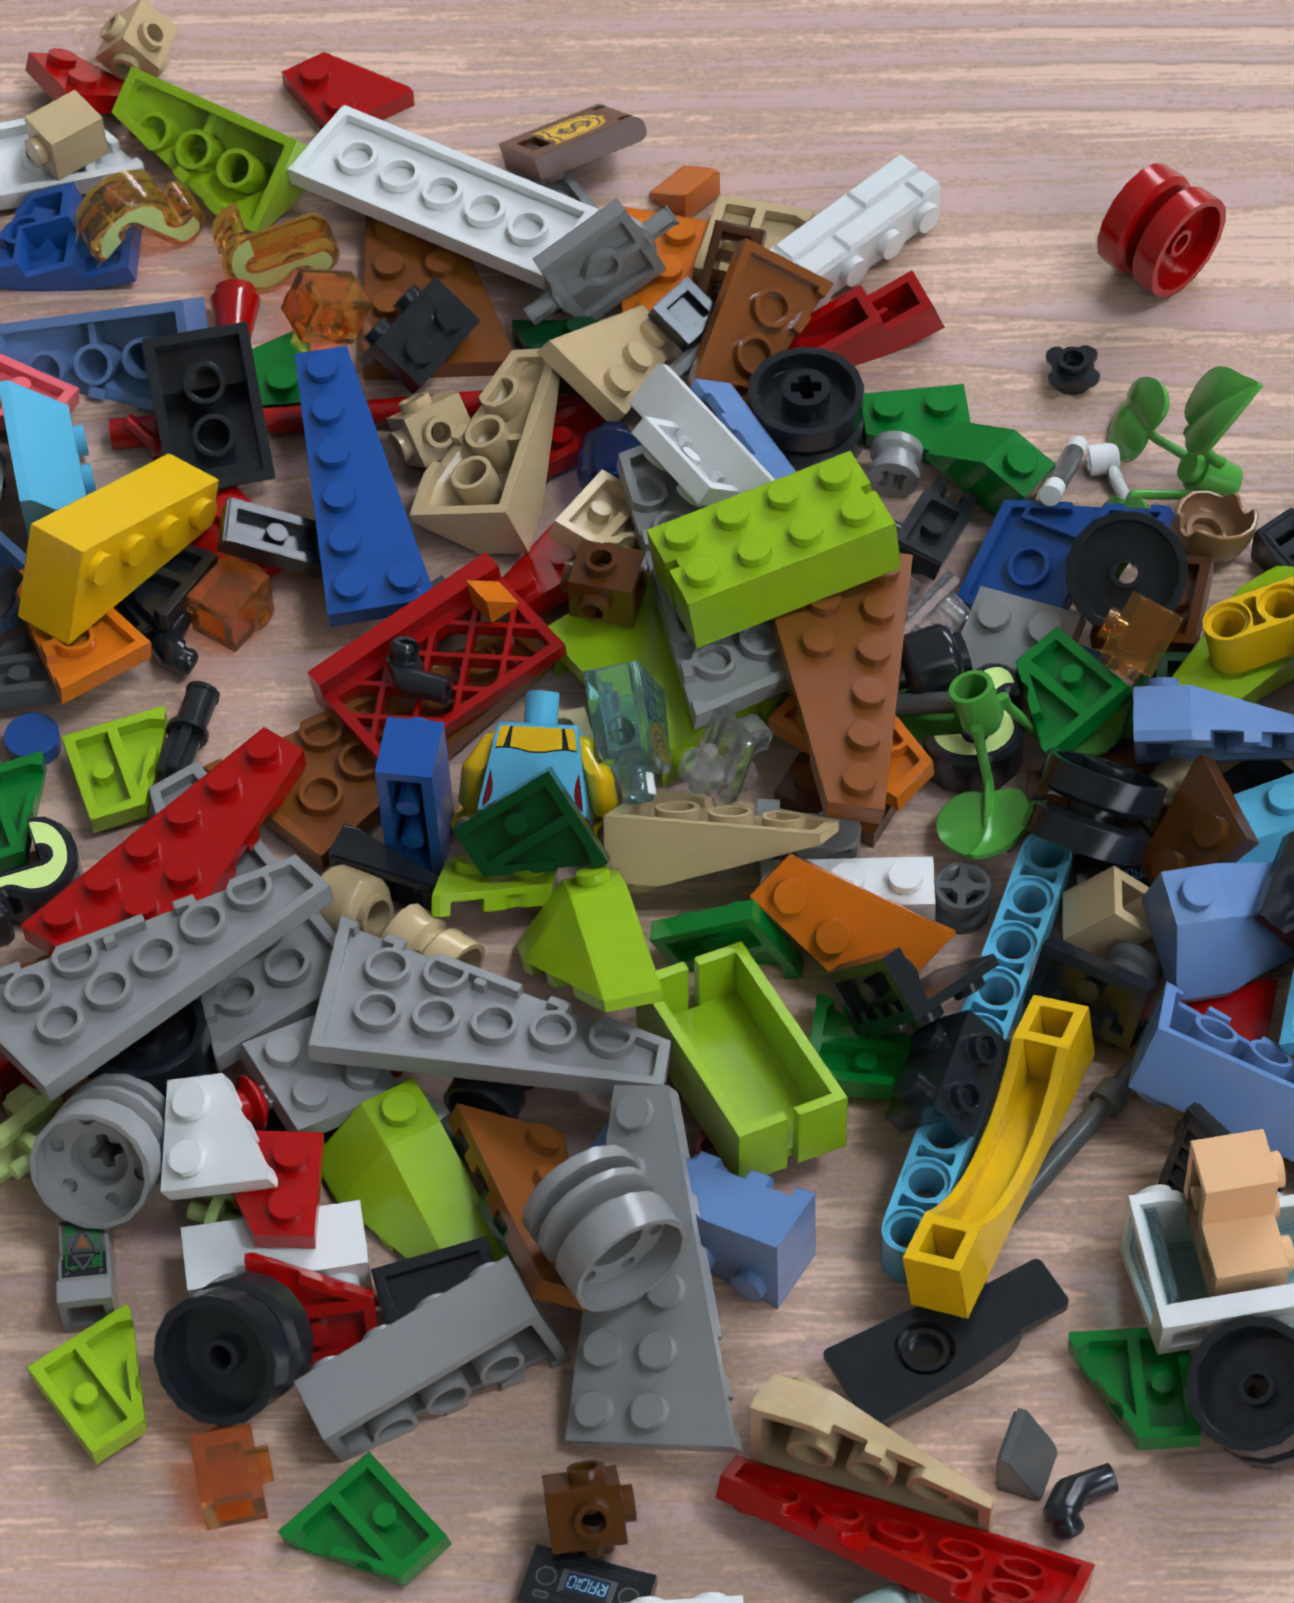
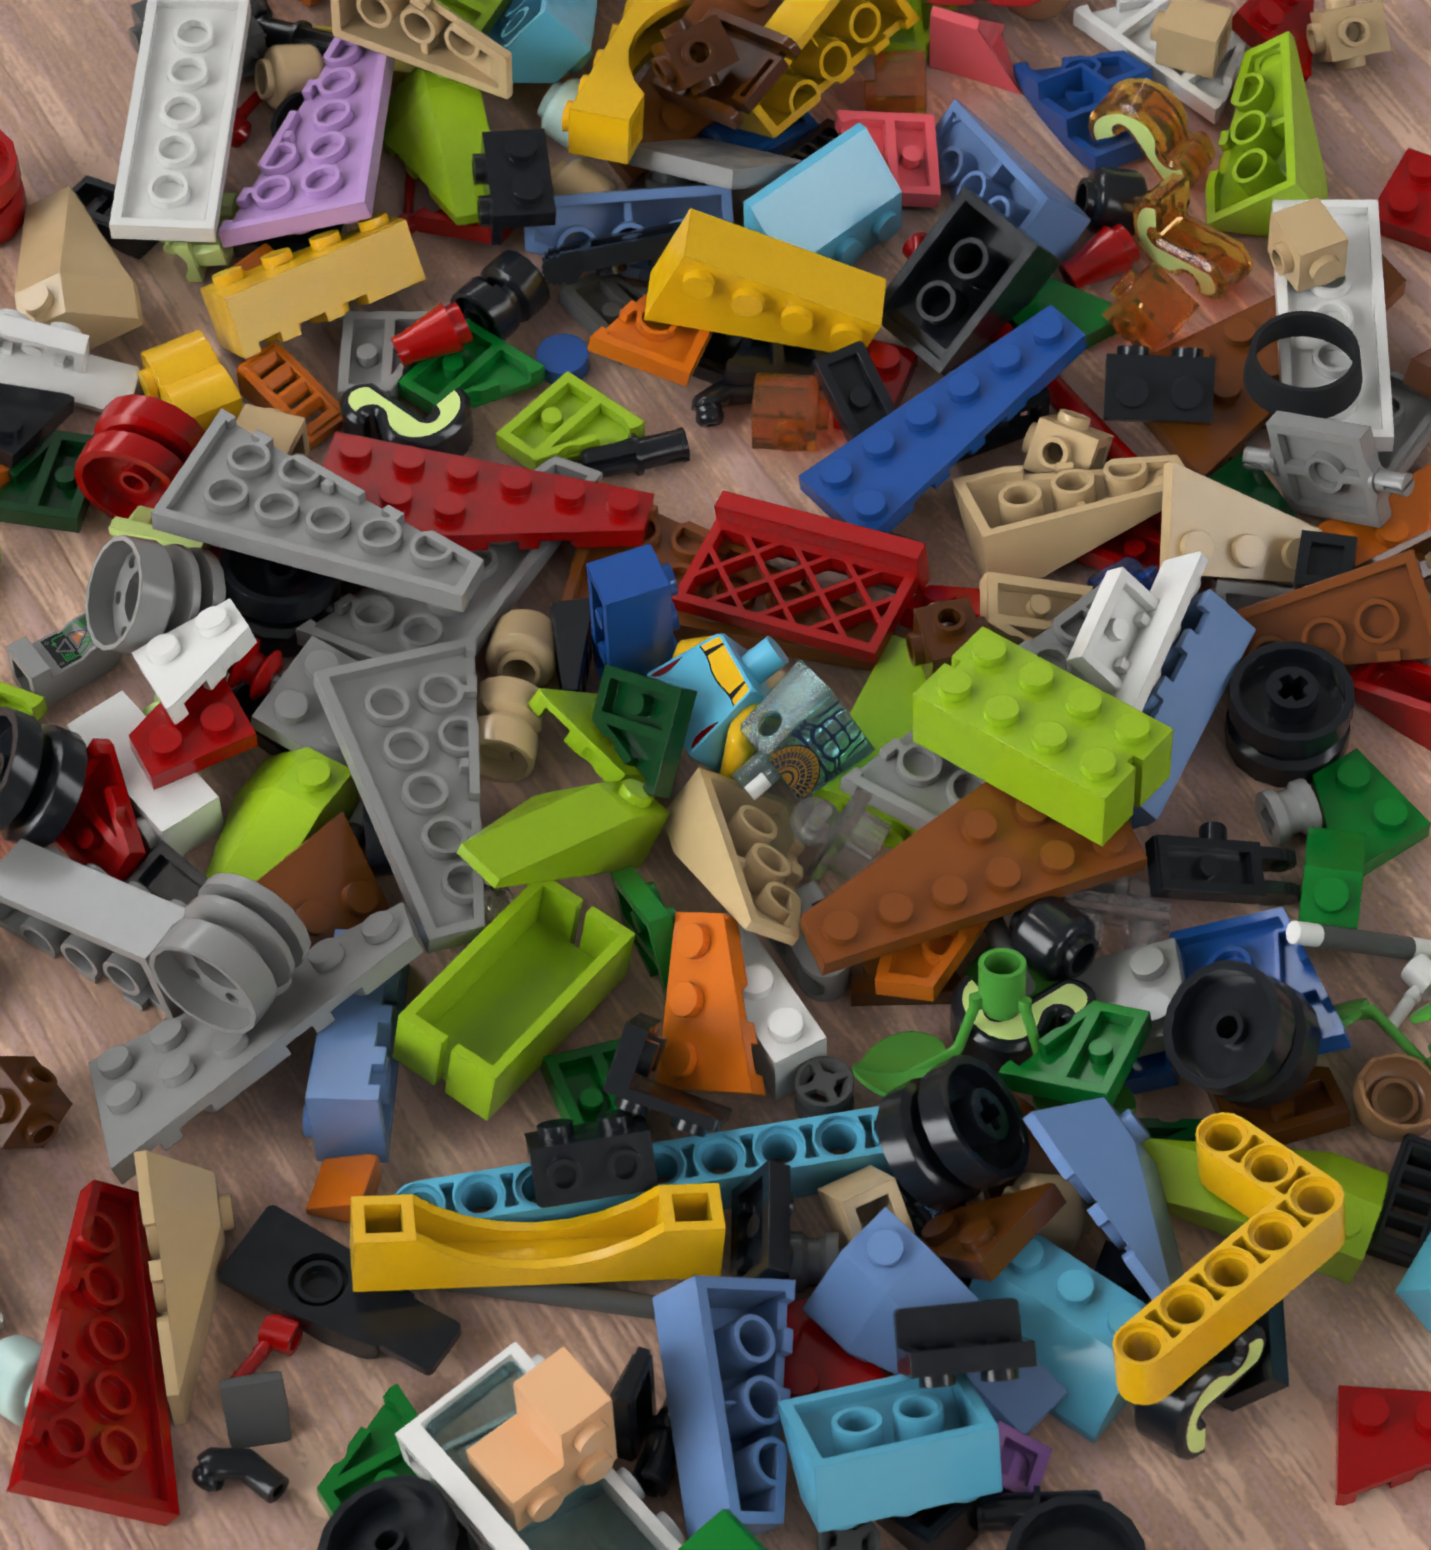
camera: 60 degrees right, 0 degrees up
(184, 273) = (1110, 197): none -> black head
(372, 161) = (1307, 245): none -> tan brick
(410, 675) = (767, 559): black arm -> none
(491, 598) = (883, 573): orange piece -> none
(497, 259) = (1314, 401): none -> black tyre
(831, 1292) = (339, 1181): none -> orange slope
(950, 1413) = (275, 1334): none -> red hand
(1138, 636) = (1162, 1072): clear orange brick -> none

